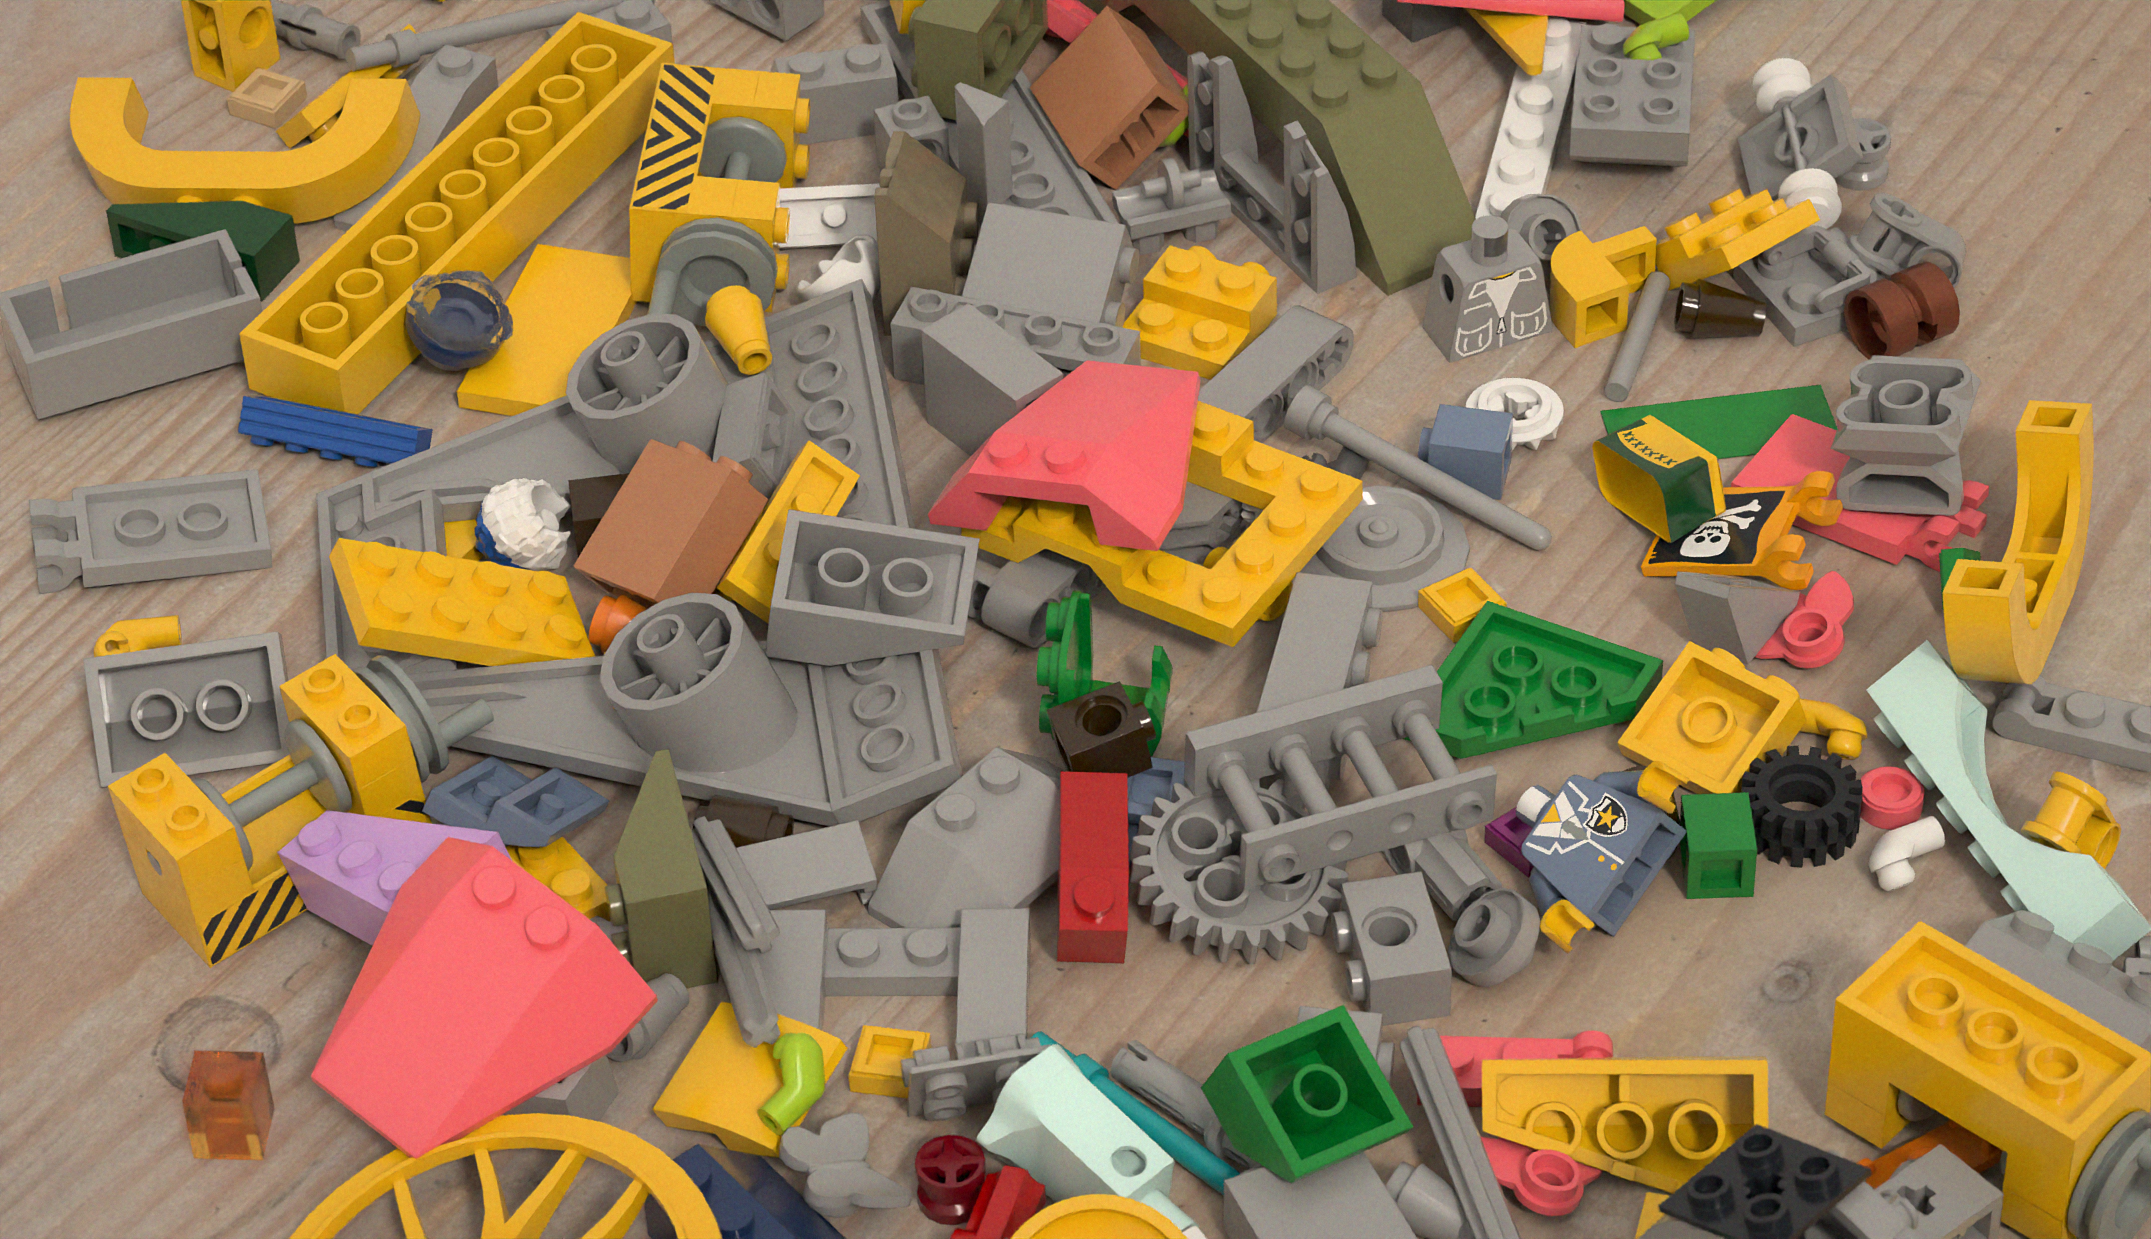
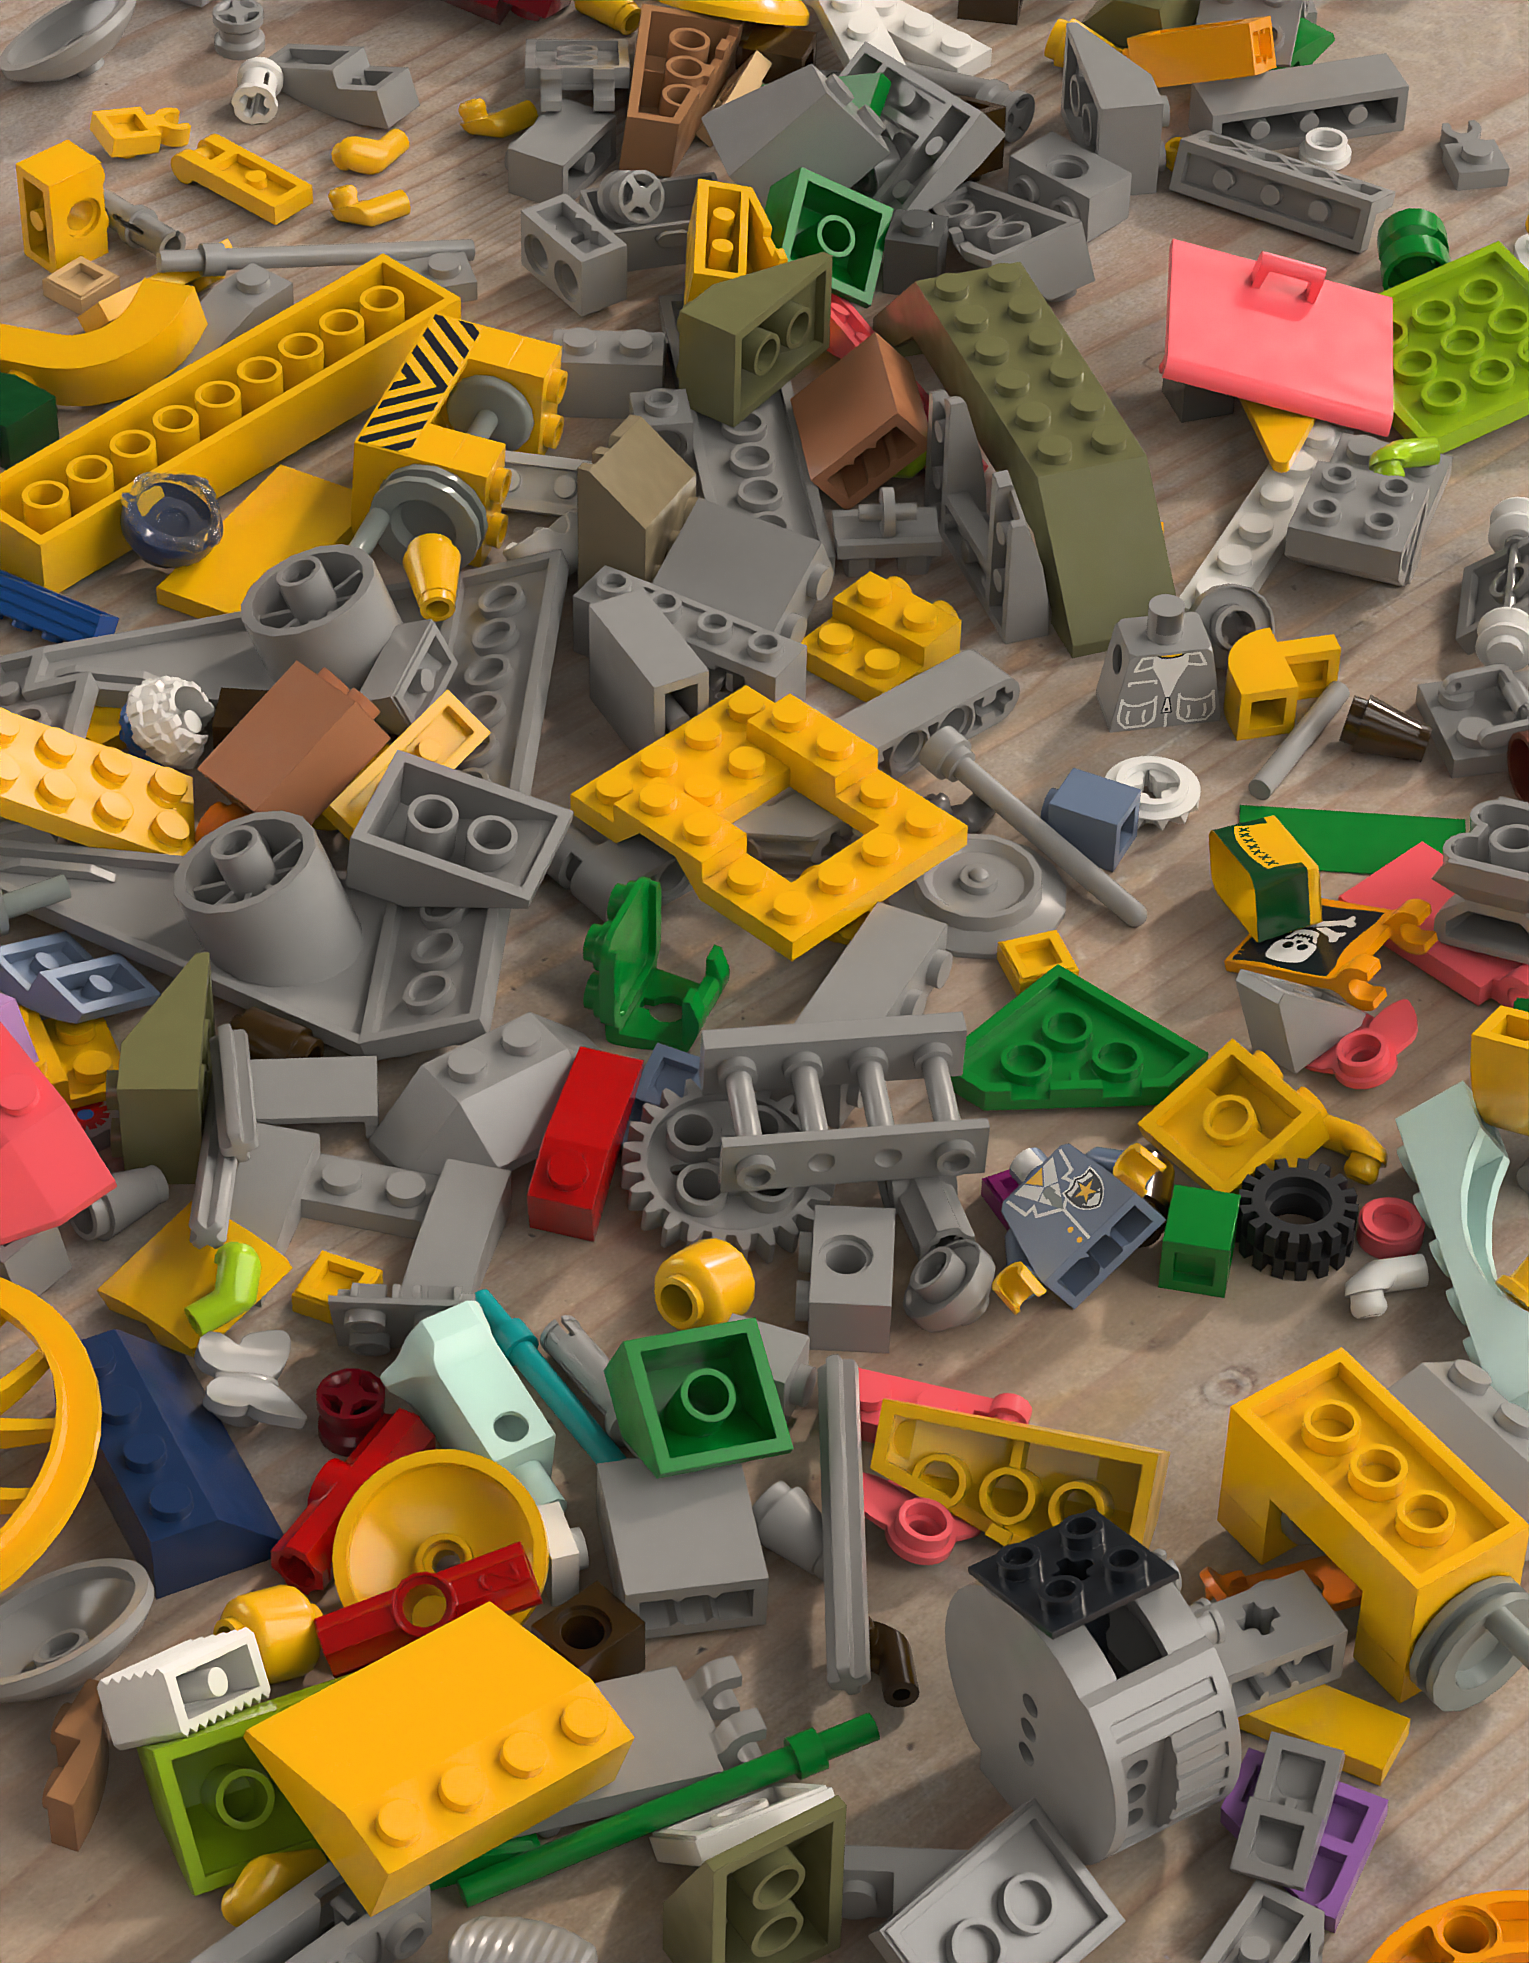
camera: 10 degrees right, 0 degrees up
(984, 144) = (717, 443): light grey slope -> none
(1093, 439) = (715, 743): coral wedge -> none
(1103, 732) = (636, 1018): dark brown brick -> none
(1256, 986) = (704, 1285): none -> yellow head
(1729, 235) = (1419, 657): yellow plate -> none

